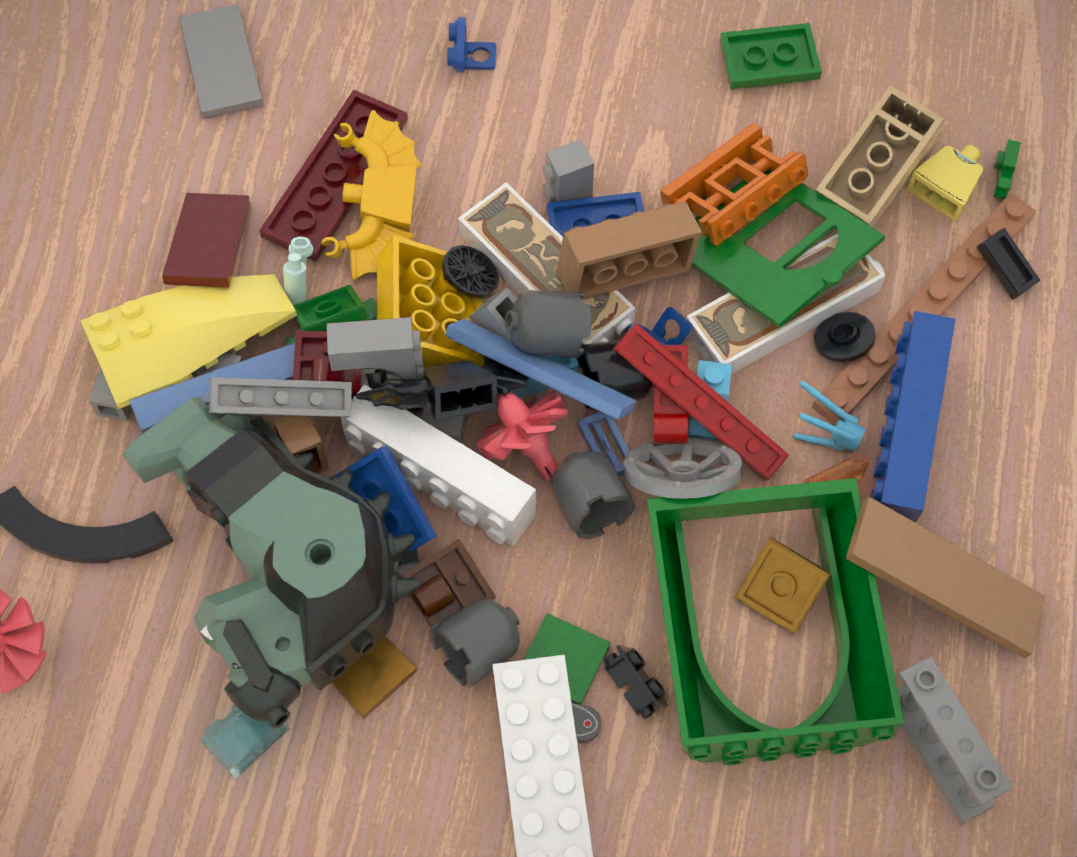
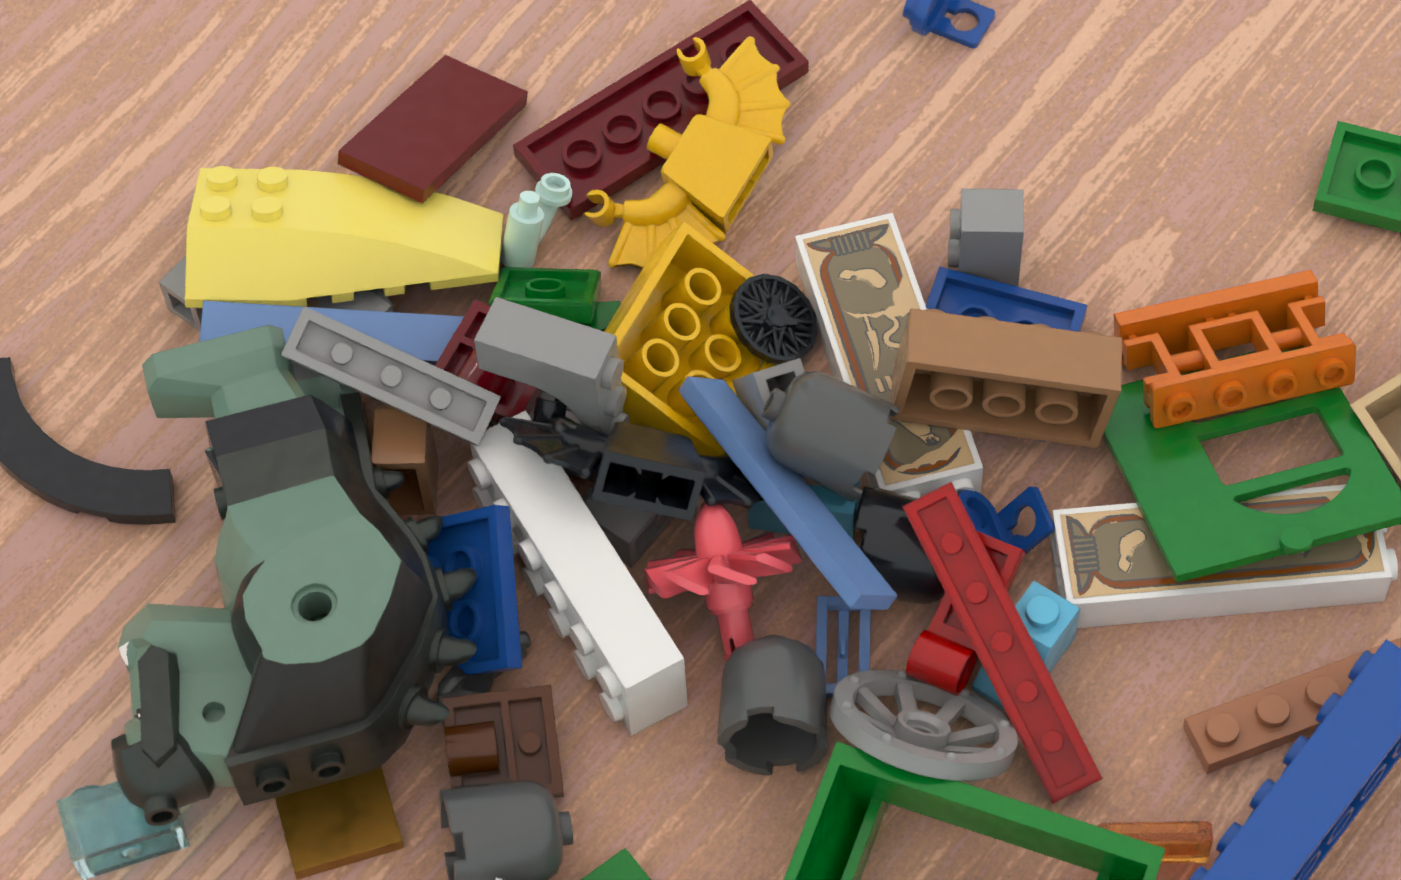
camera: 30 degrees right, 5 degrees down
(844, 336) = (1286, 643): black wheel -> none
(845, 434) = (1204, 785): medium azure plant -> none

